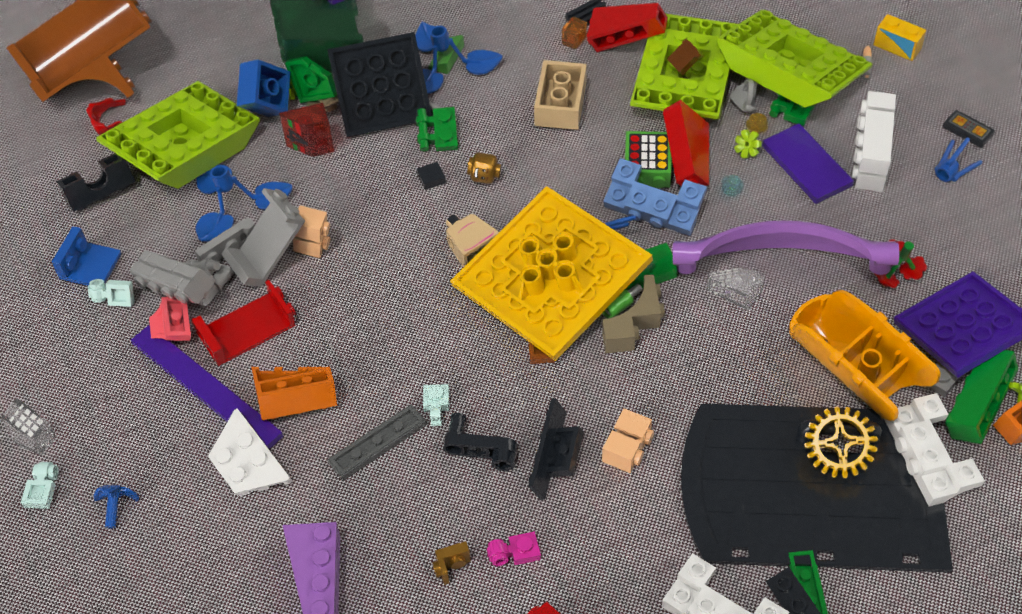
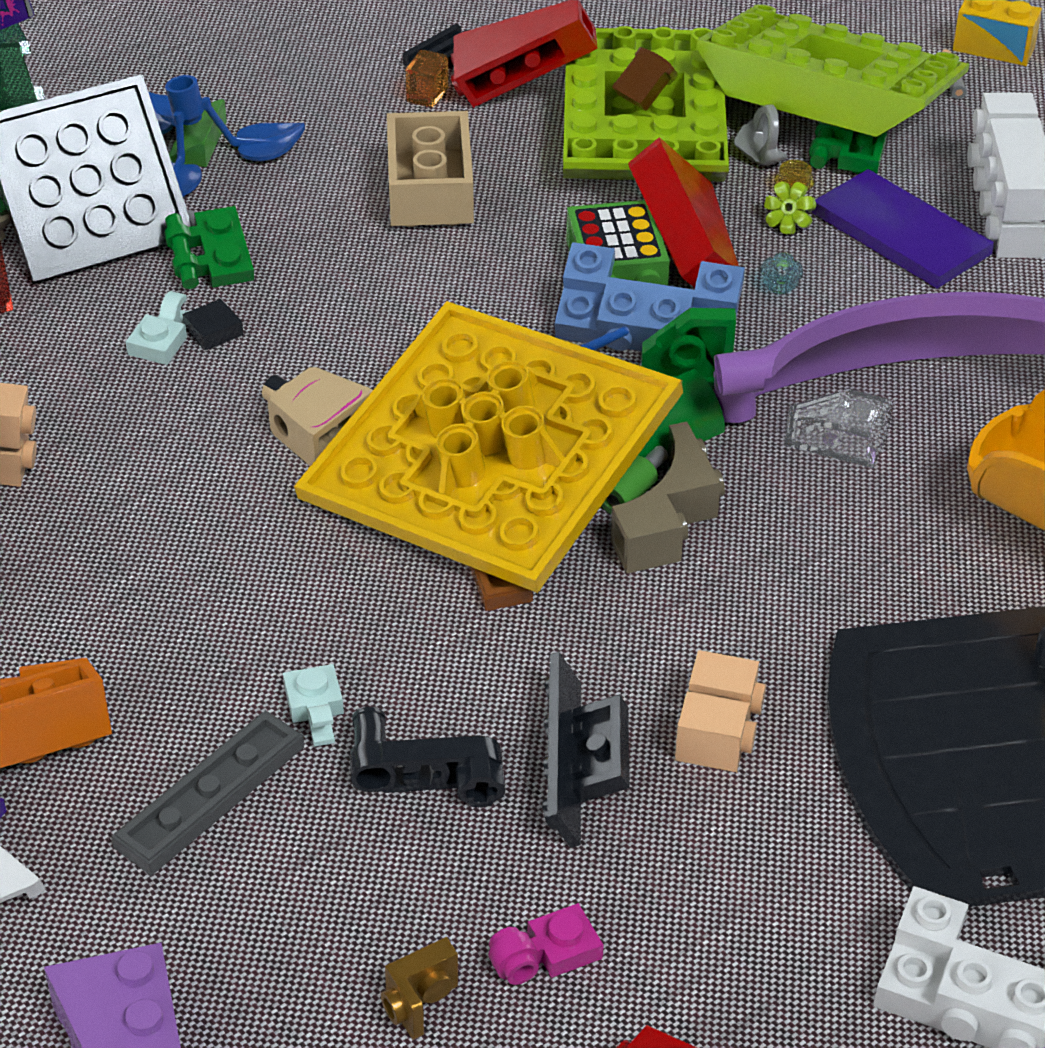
camera: 15 degrees left, 10 degrees down
(403, 179) = (160, 336): none -> light aqua plate
(483, 168) = (314, 296): pearl gold head -> none
(666, 228) = (691, 342): none -> green plate

